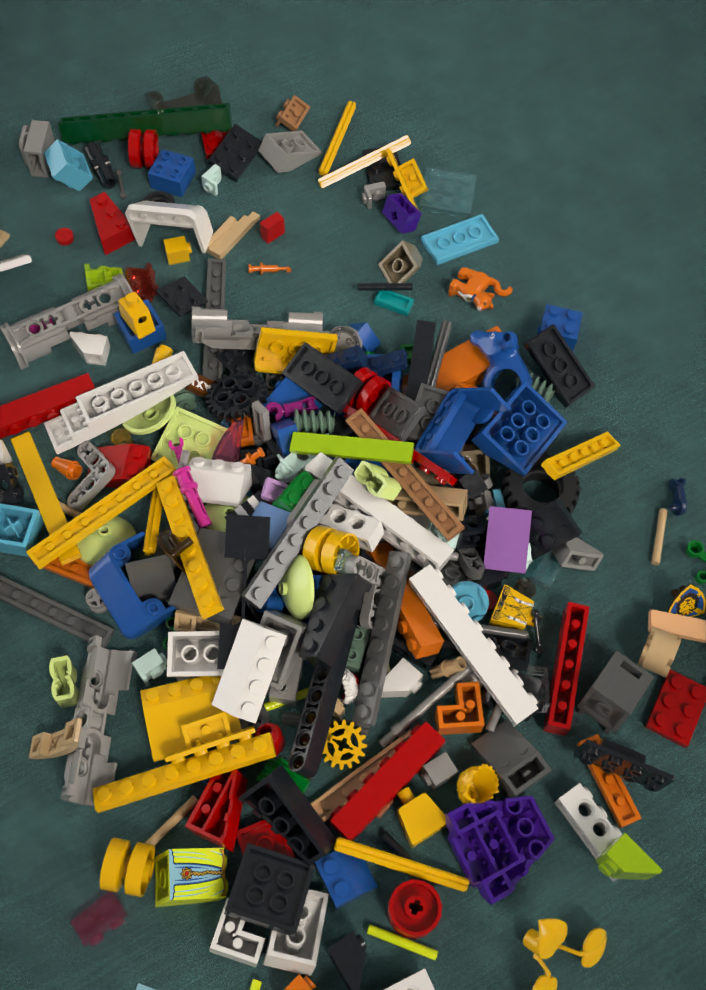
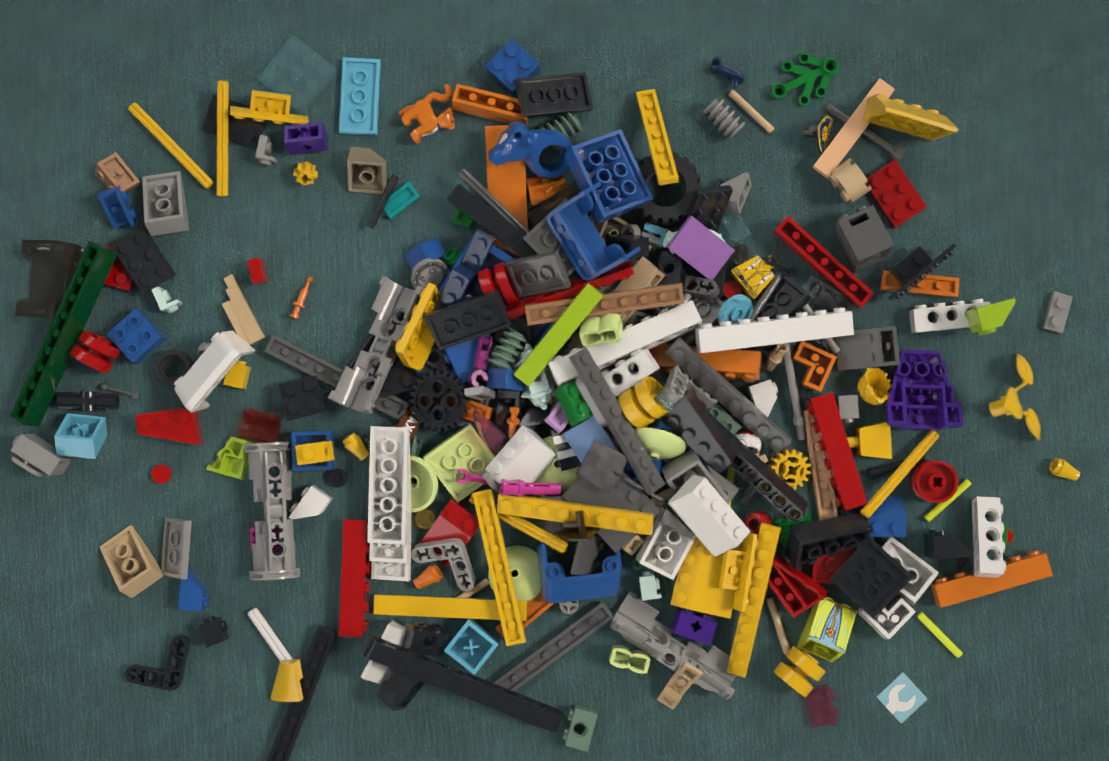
camera: 60 degrees left, 25 degrees up
(123, 742) = (682, 625): none -> dark purple brick
(125, 359) = (337, 477): none -> black tile
(267, 119) = (117, 207): none -> blue bracket
(373, 226) = (305, 173): none -> yellow gear
(515, 318) = (487, 105): none -> orange brick
(637, 511) = (724, 118): none -> light grey piece
(677, 954) = (1057, 312): none -> light grey plate

